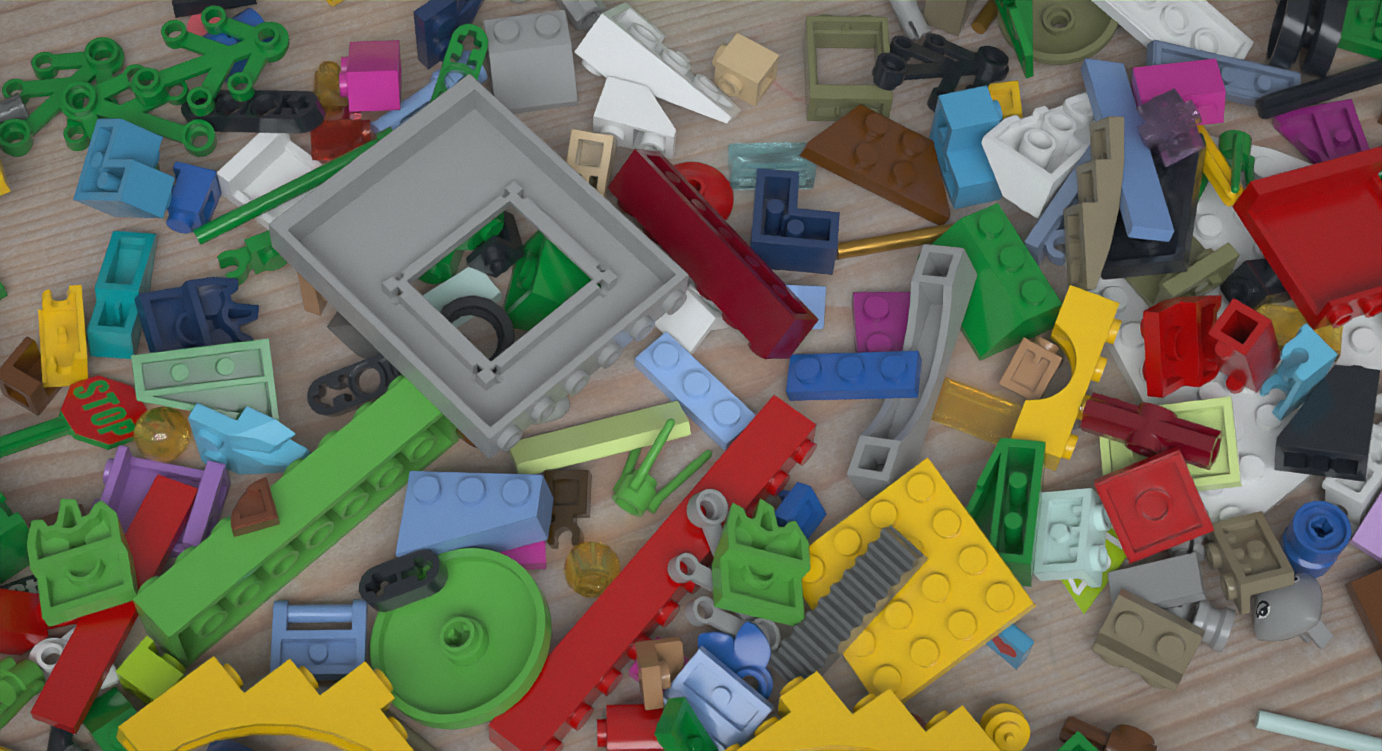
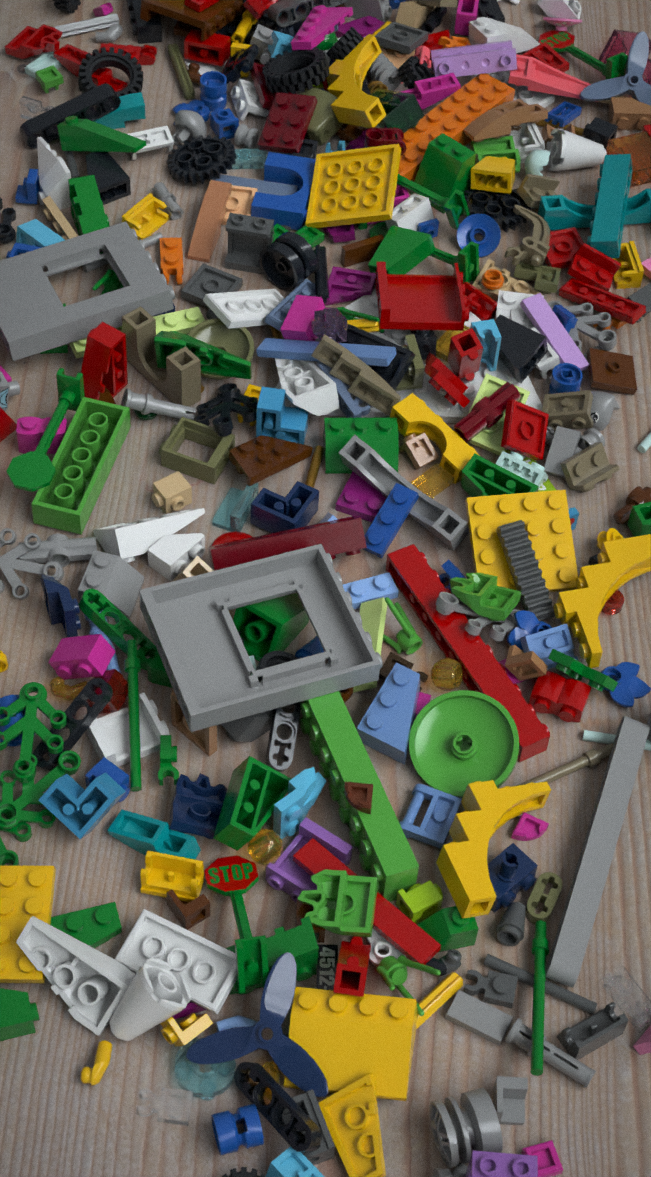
camera: 65 degrees left, 10 degrees down
(403, 580) = (411, 758): black beam -> none

